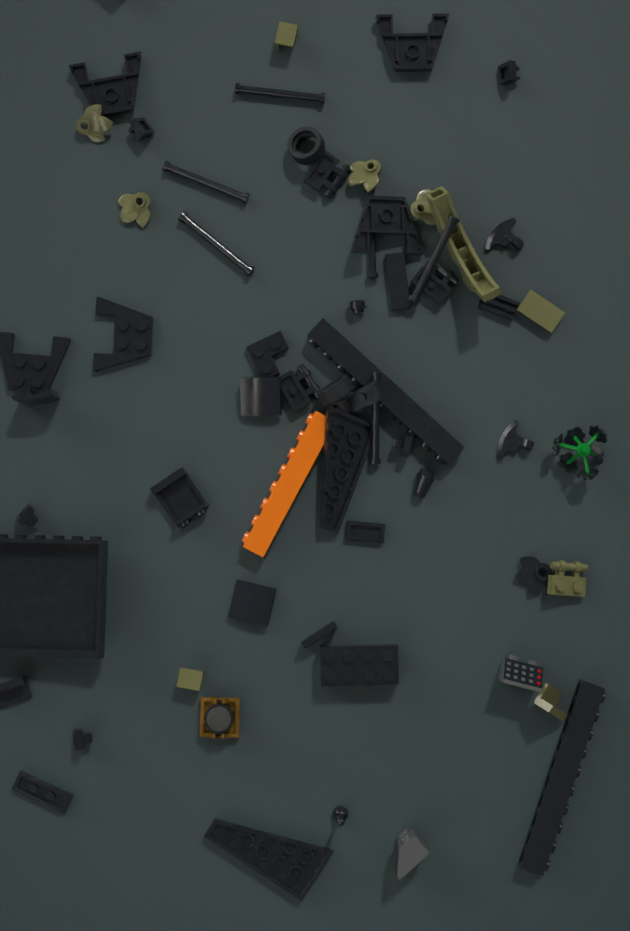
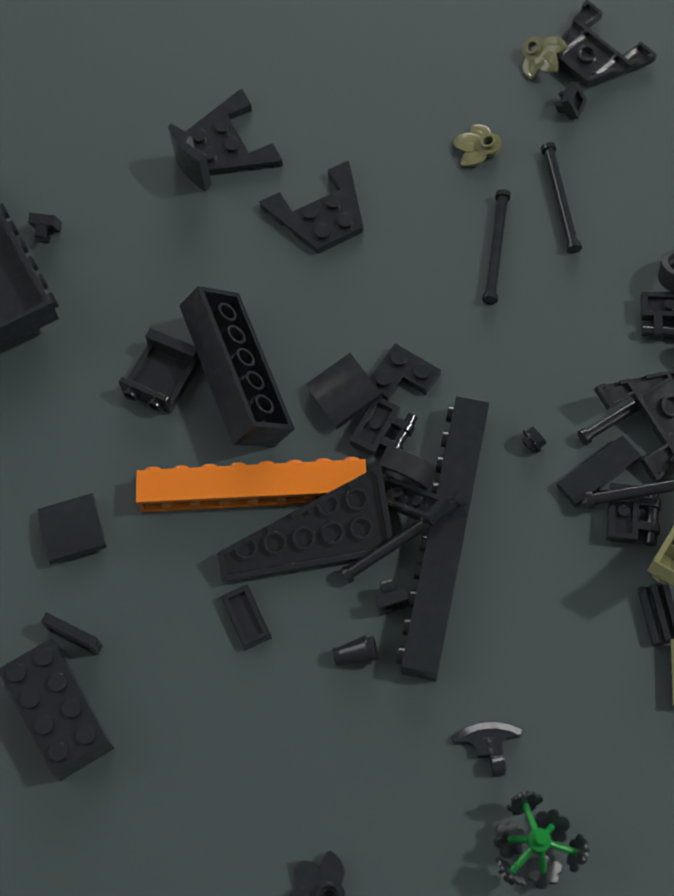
camera: 60 degrees right, 20 degrees down
(209, 451) = (236, 368): none -> black brick

